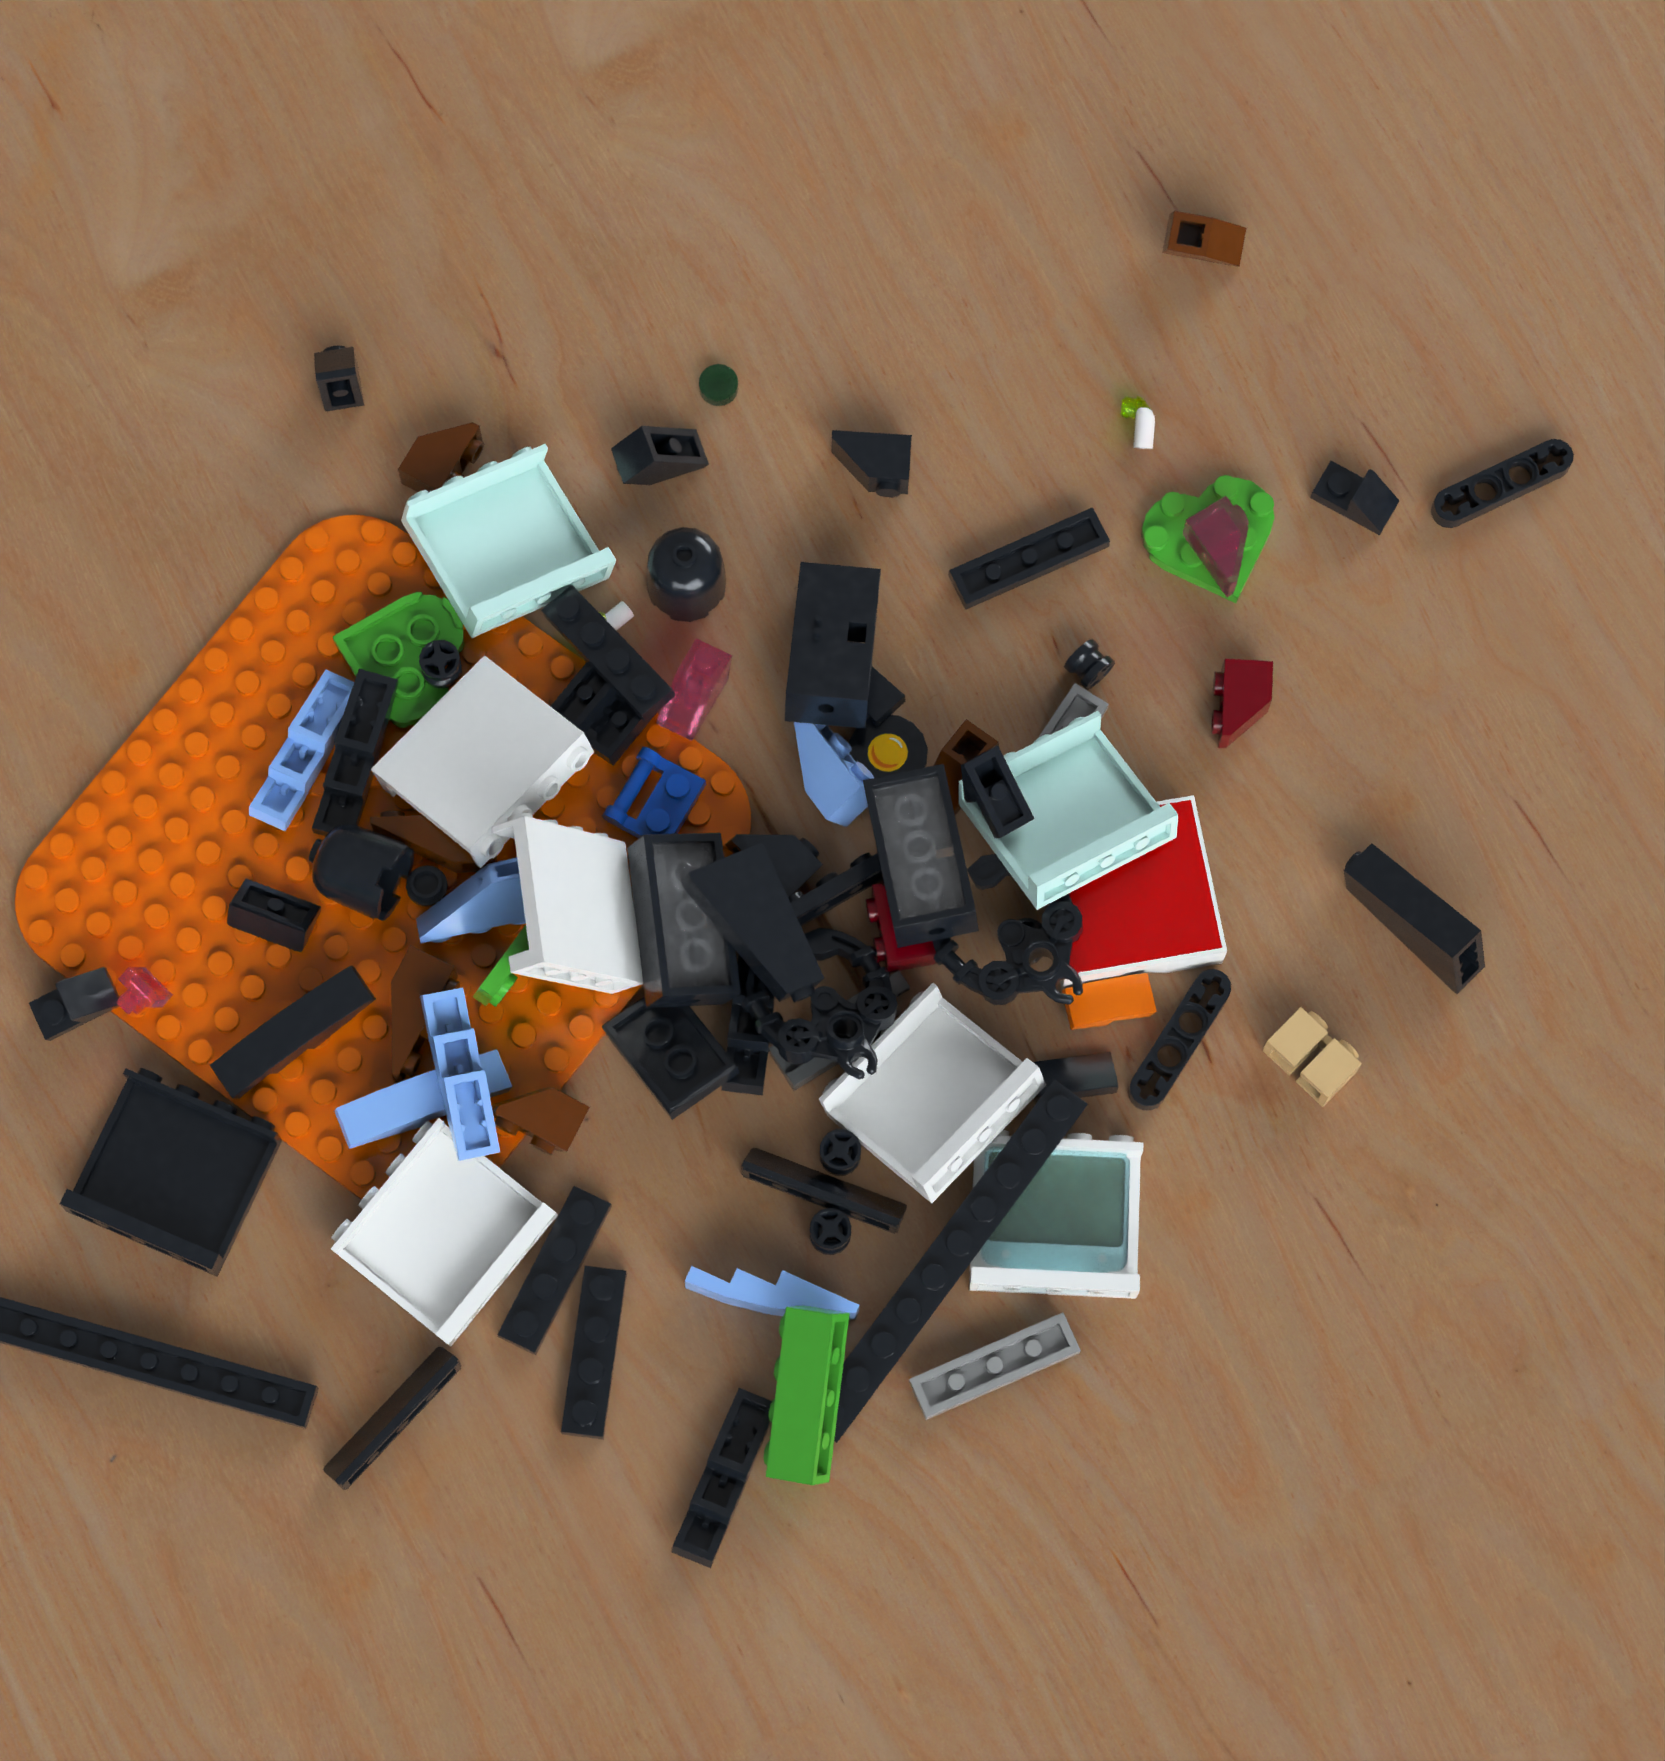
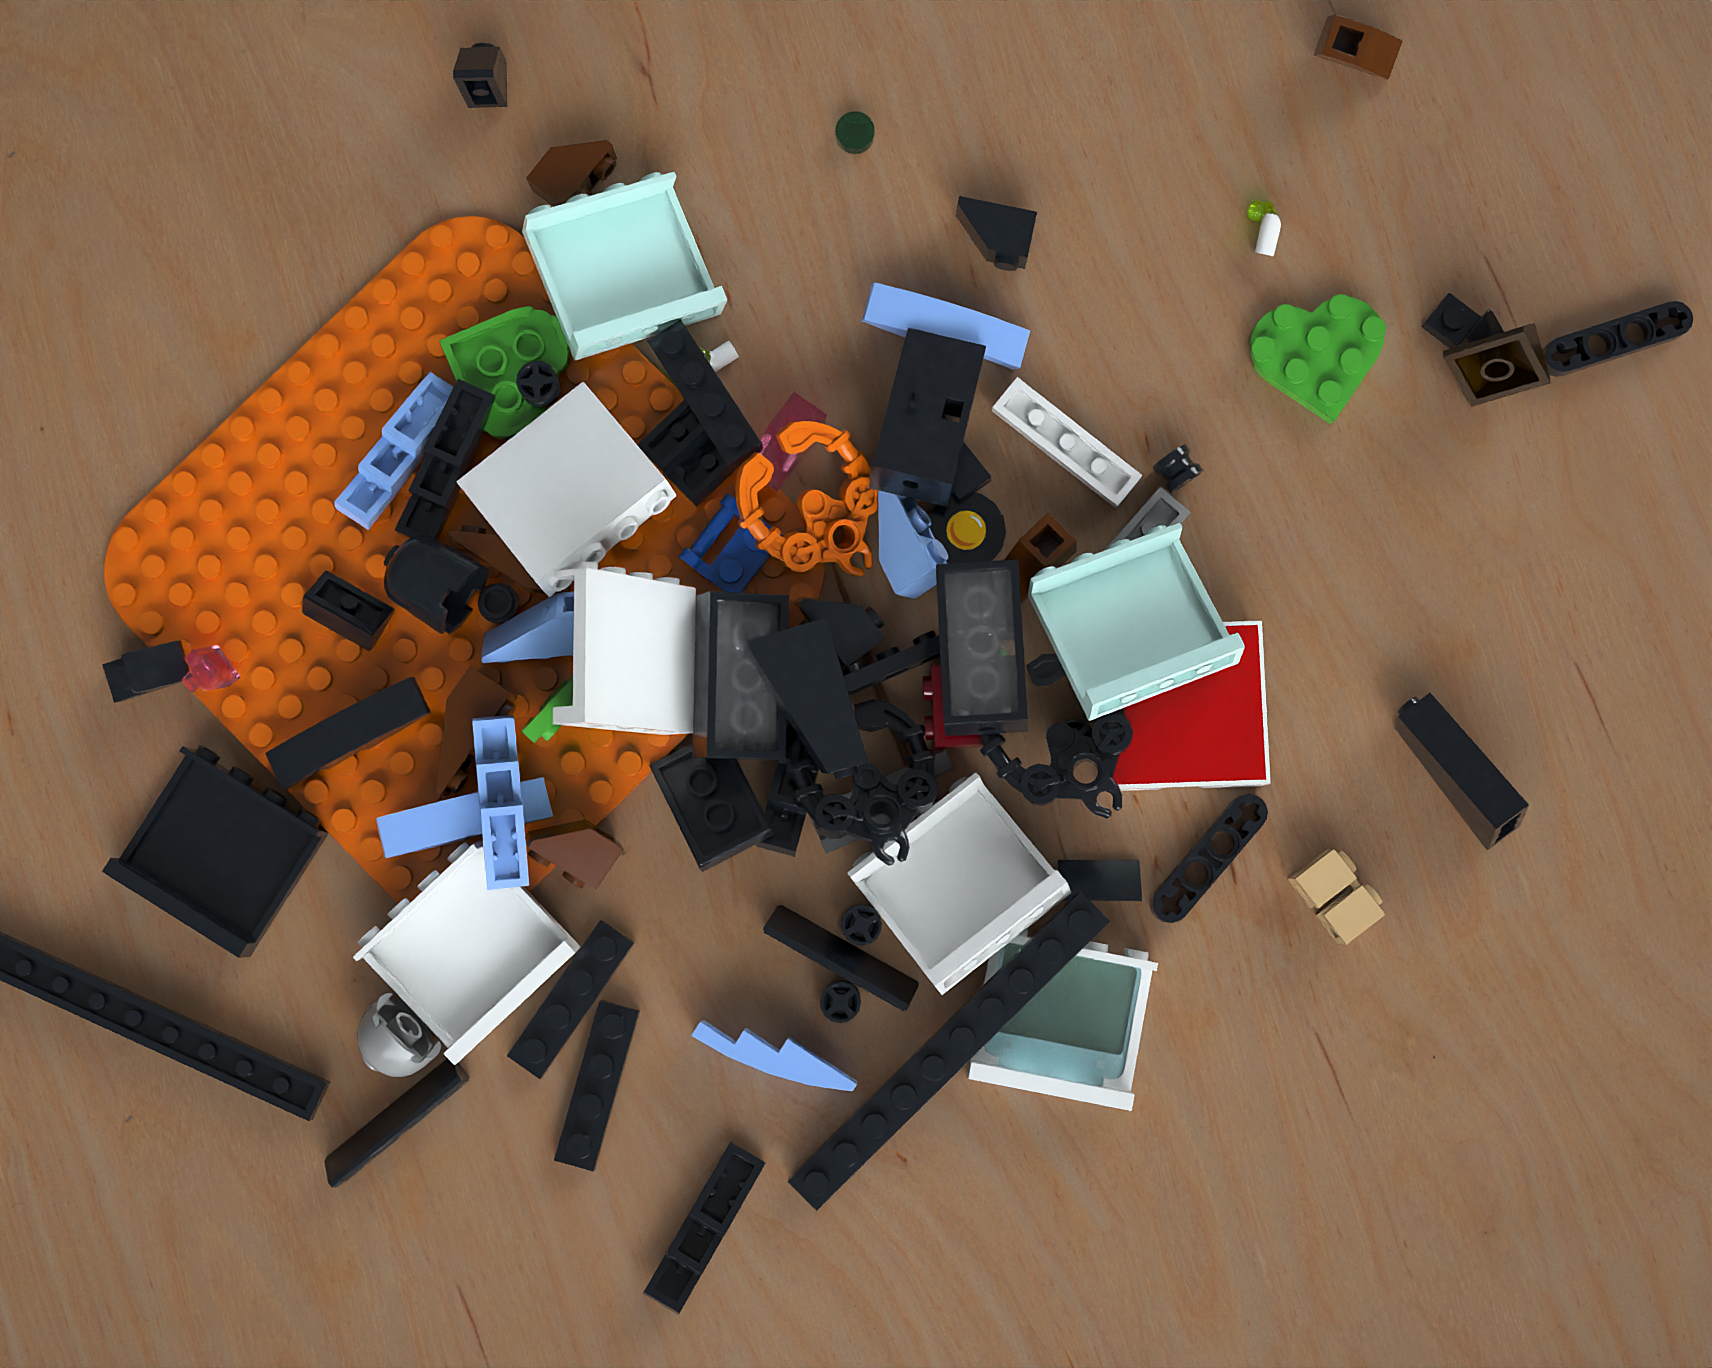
camera: 15 degrees right, 10 degrees up
(381, 1330) = (395, 1038): none -> light grey cylinder
(658, 454) = (785, 196): black slope -> none
(685, 574) = (794, 323): black cylinder -> none
(738, 751) = (819, 512): none -> orange piece
(787, 547) = (902, 309): none -> light blue slope
(806, 1394) = (792, 1167): bright green brick -> none
(975, 654) = (1066, 442): none -> white plate
(994, 1366) = (979, 1157): light grey plate -> none
(995, 790) = (1066, 596): black slope -> none
(1029, 558) = (1134, 352): black plate -> none
(1110, 1001) = (1148, 811): orange slope -> none
(1219, 541) = (1327, 364): clear pink slope -> none
(1244, 697) = (1325, 521): dark red slope -> none
(1387, 520) = (1499, 365): none -> dark brown slope

